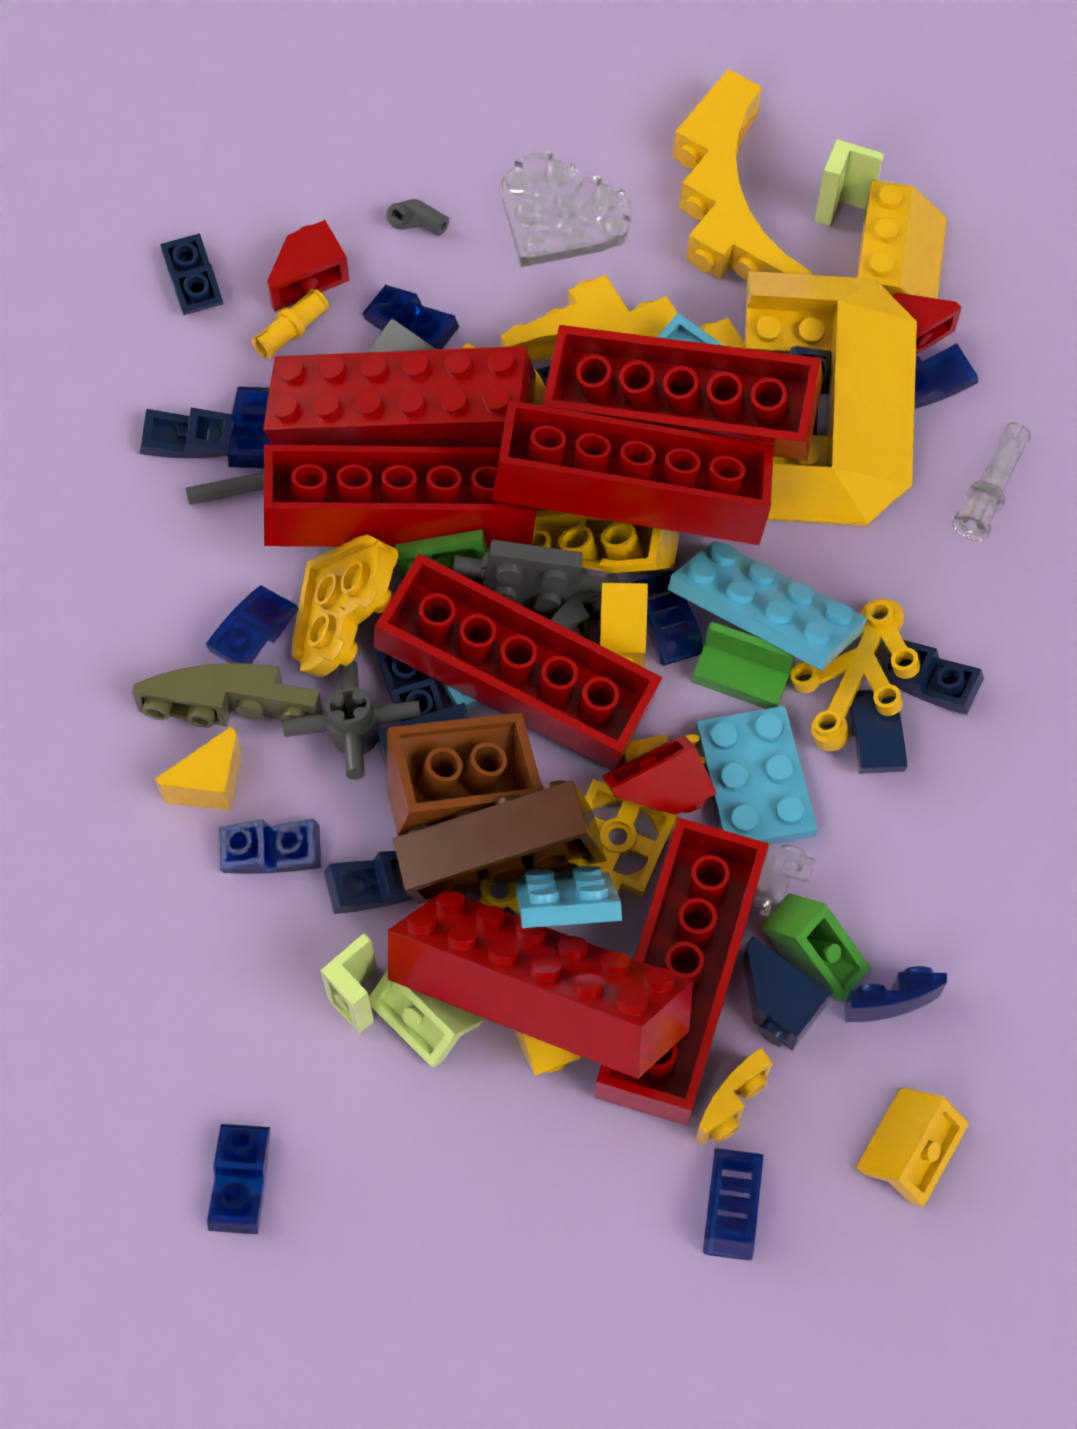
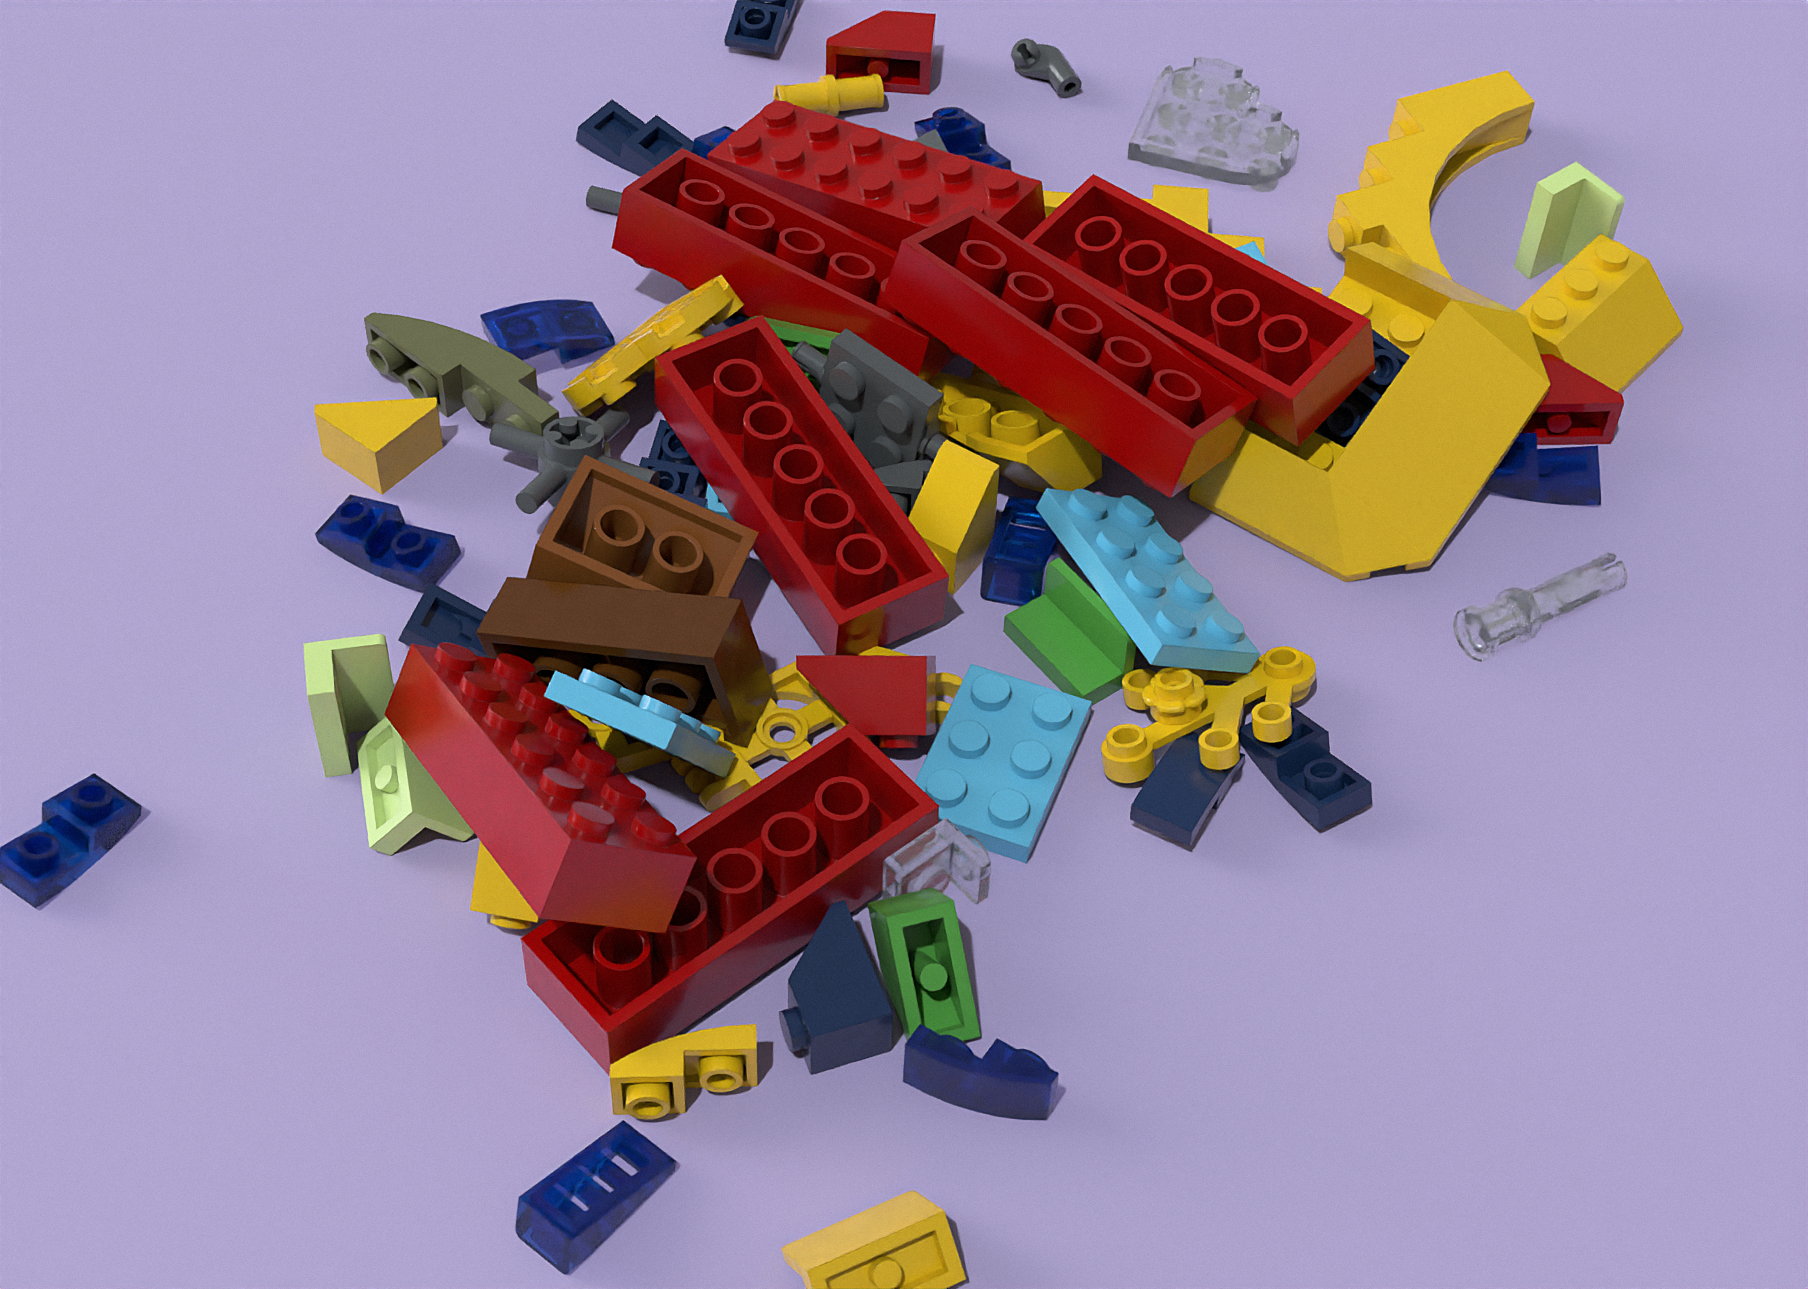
camera: 30 degrees right, 15 degrees down
(838, 685) = (1175, 696): none -> yellow plate

